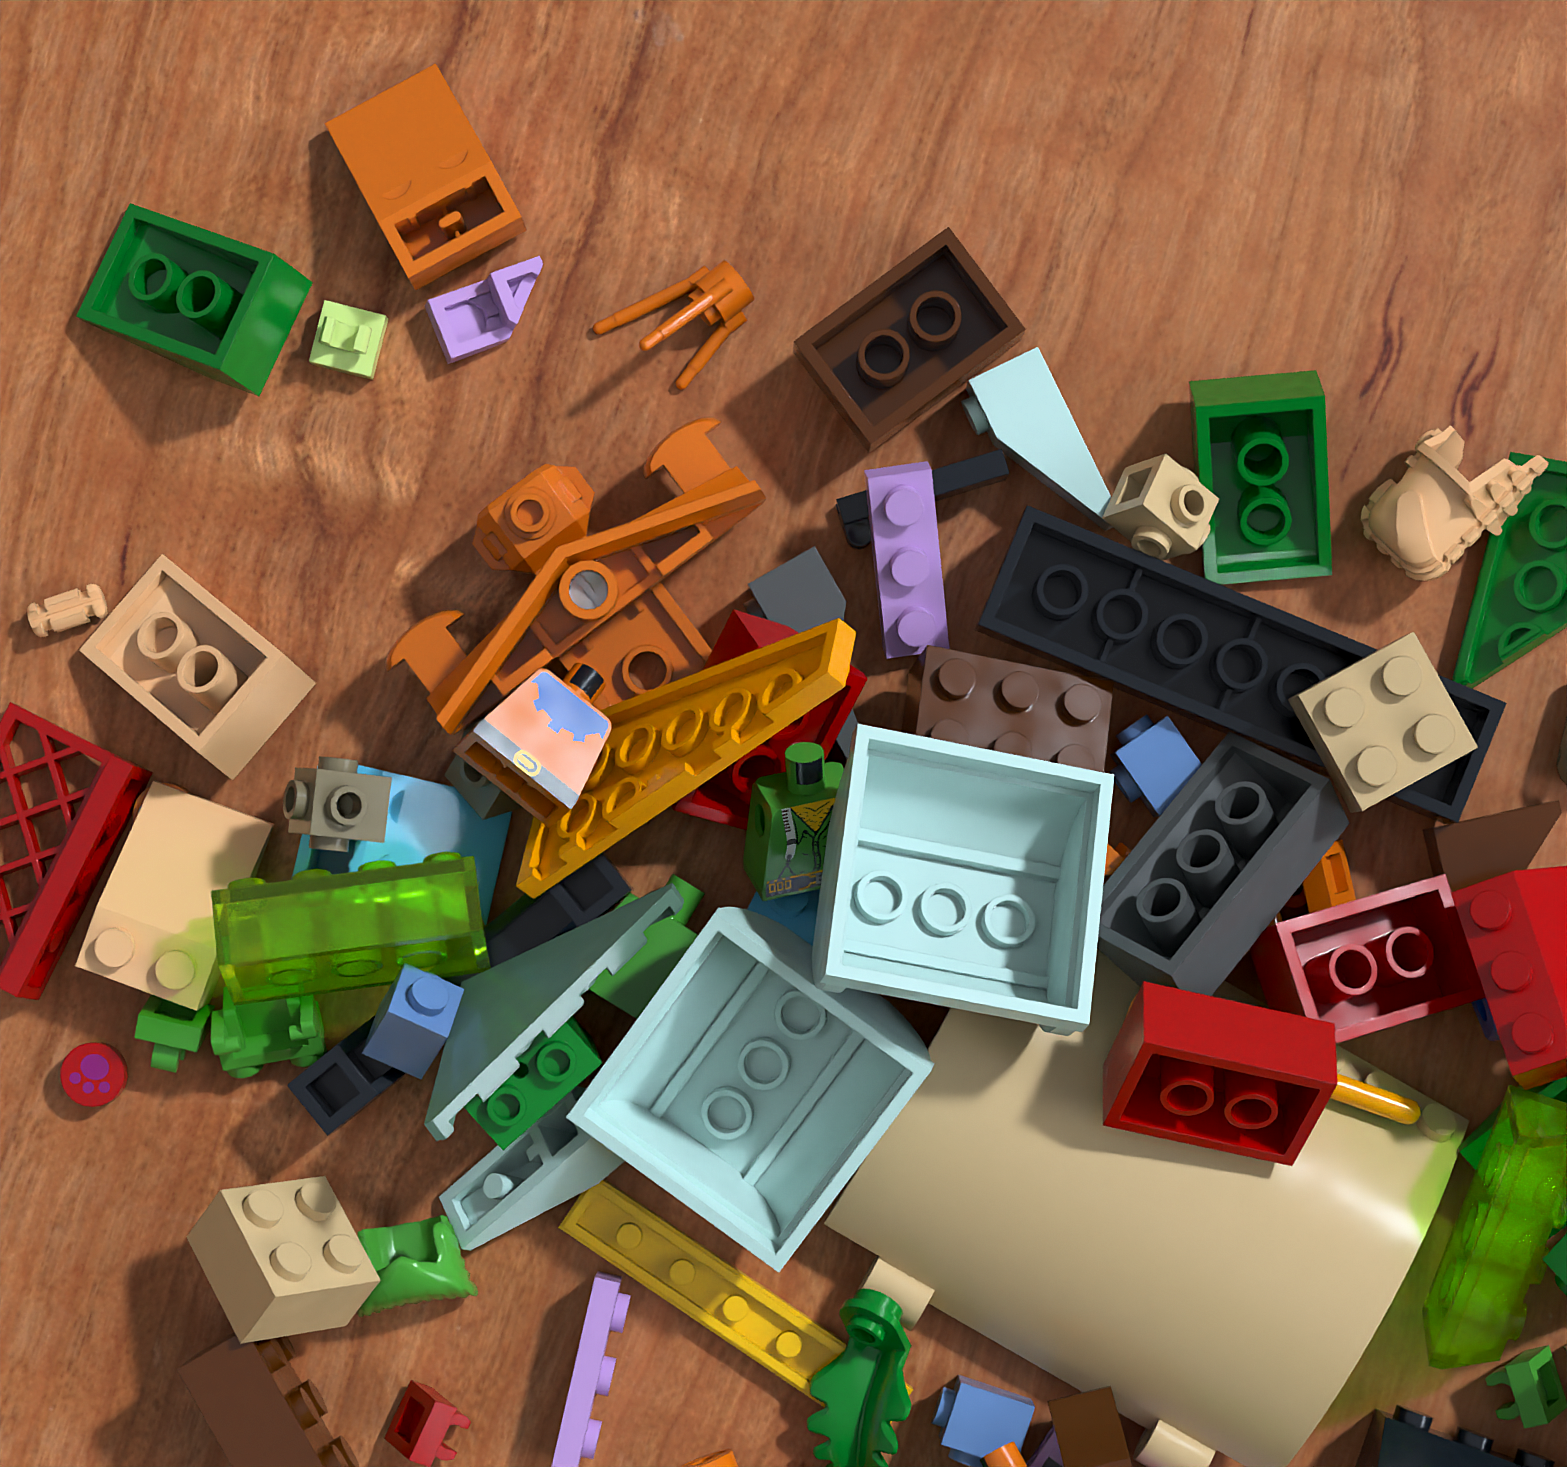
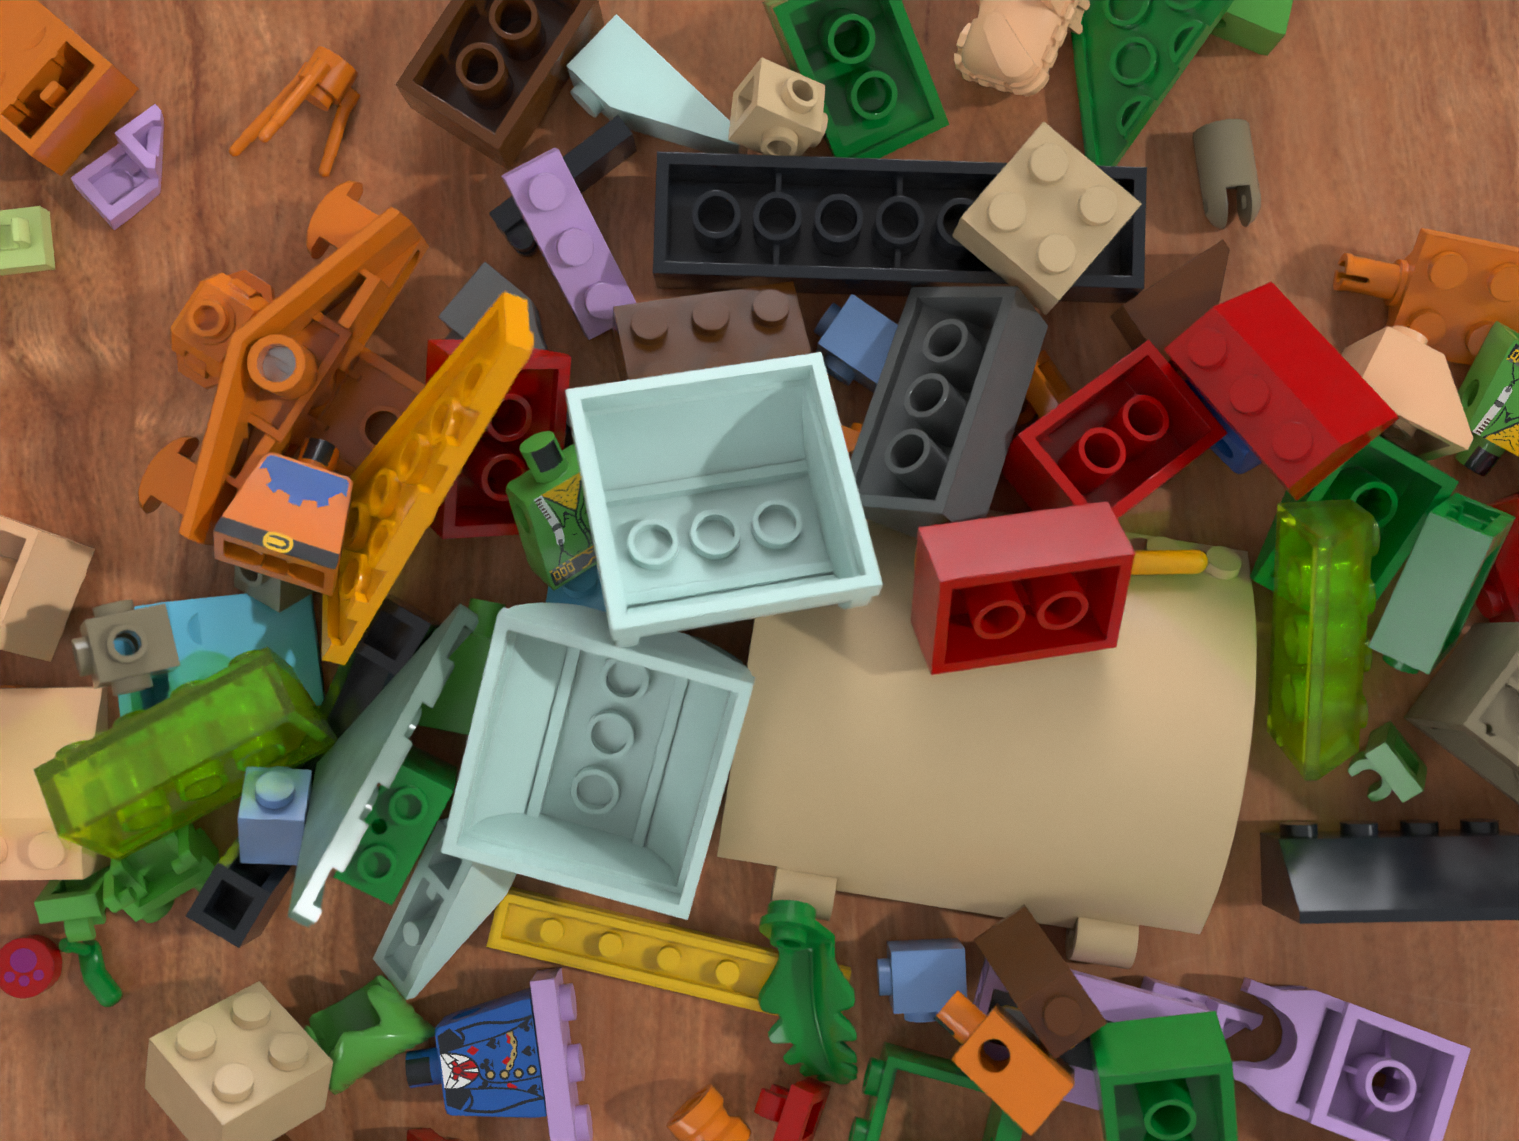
camera: 20 degrees left, 0 degrees up
(156, 1104) = (94, 971): none -> green piece
(521, 1338) = (485, 1060): none -> blue torso

